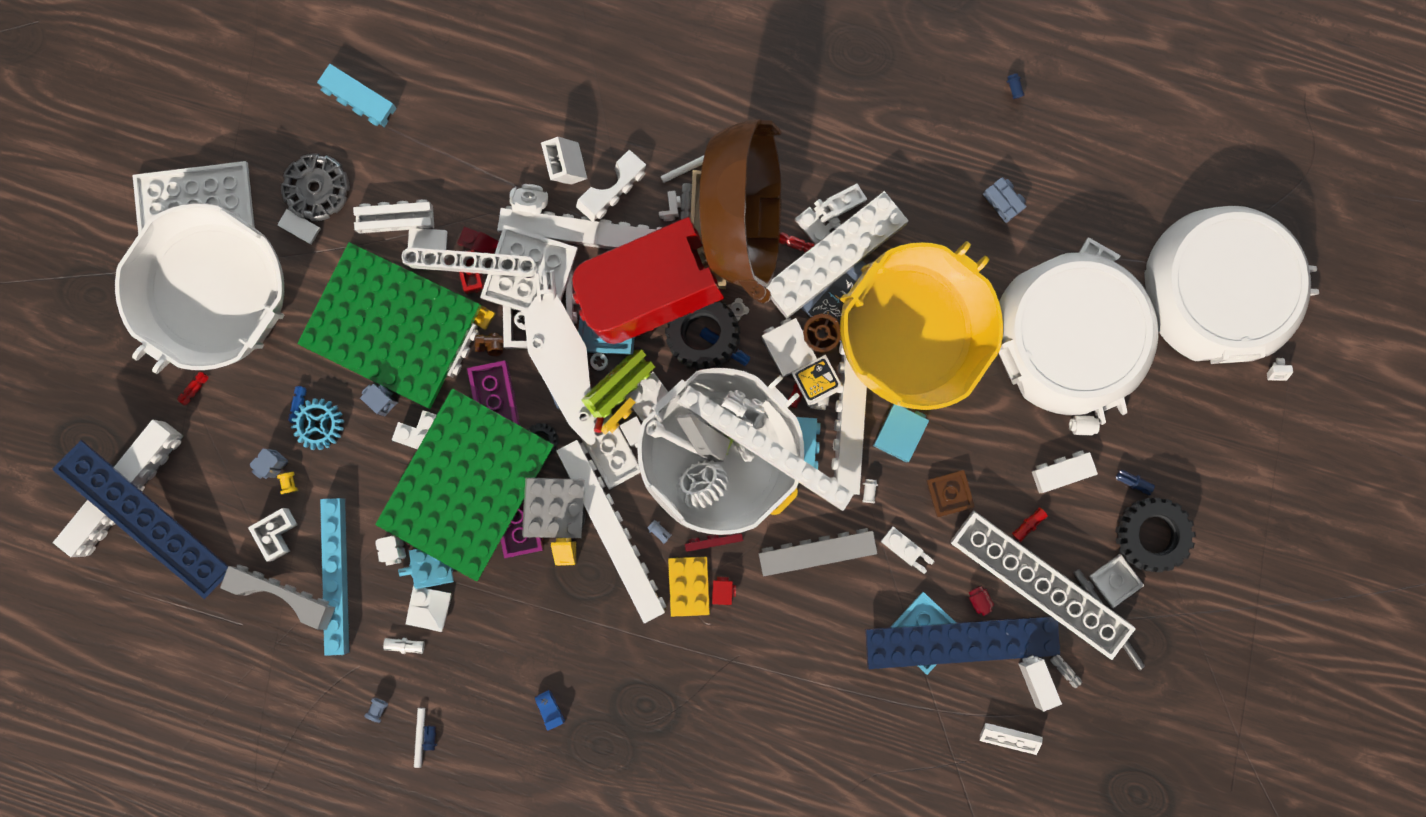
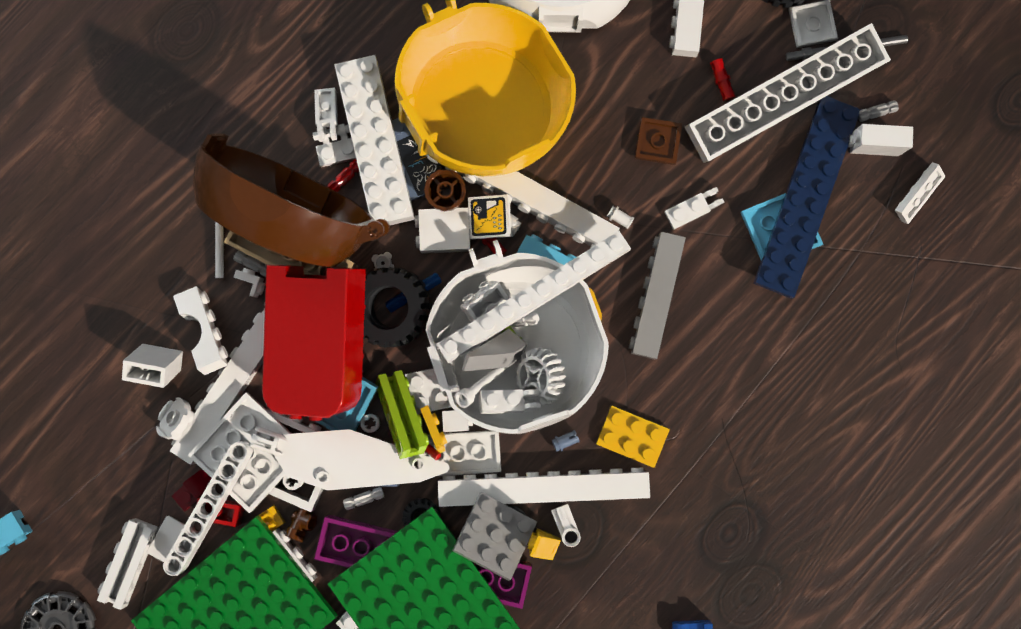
camera: 65 degrees left, 0 degrees up
(534, 385) = (363, 498): none -> white axle
(590, 562) = (565, 523): none -> white piece
(668, 465) = (507, 401): none -> white hinge
(713, 540) = (594, 410): dark red plate -> none
(723, 591) = (653, 405): red brick -> none
(734, 407) = (478, 309): white pin -> none
(901, 432) = (577, 160): medium azure brick -> none
(981, 600) = (774, 159): dark red brick -> none

